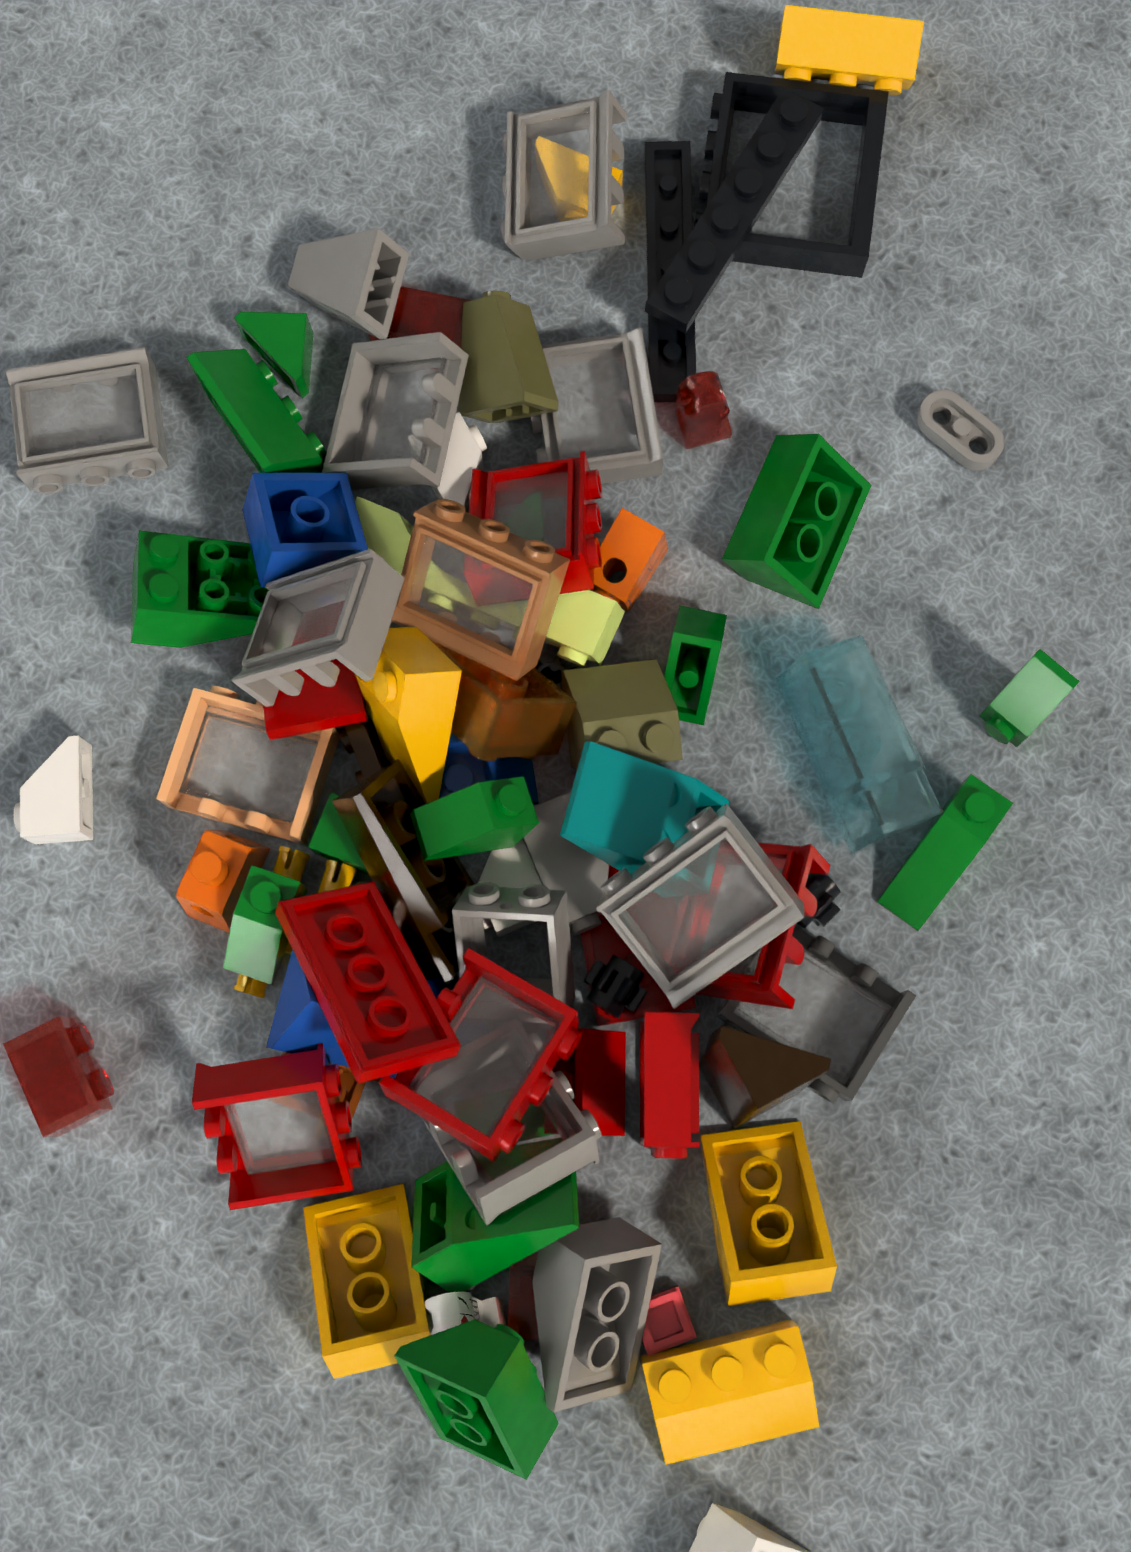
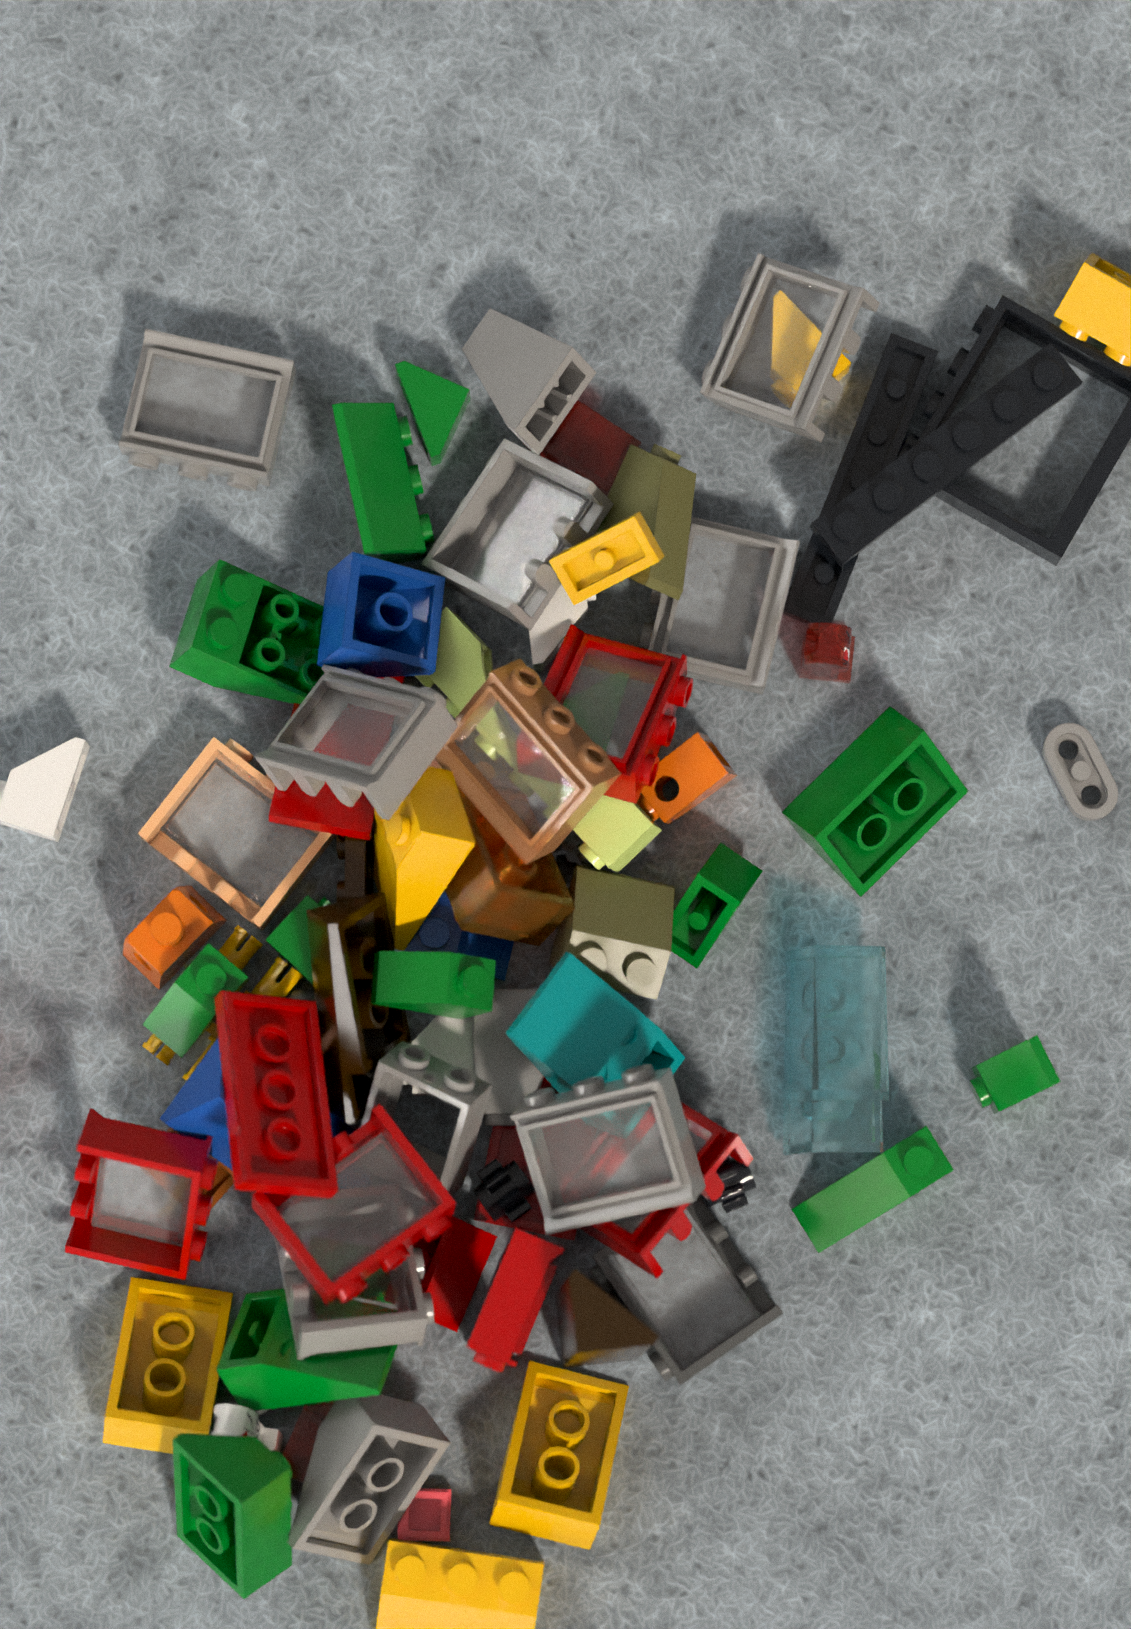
camera: 15 degrees right, 5 degrees up
(480, 390) = (606, 558): none -> yellow plate

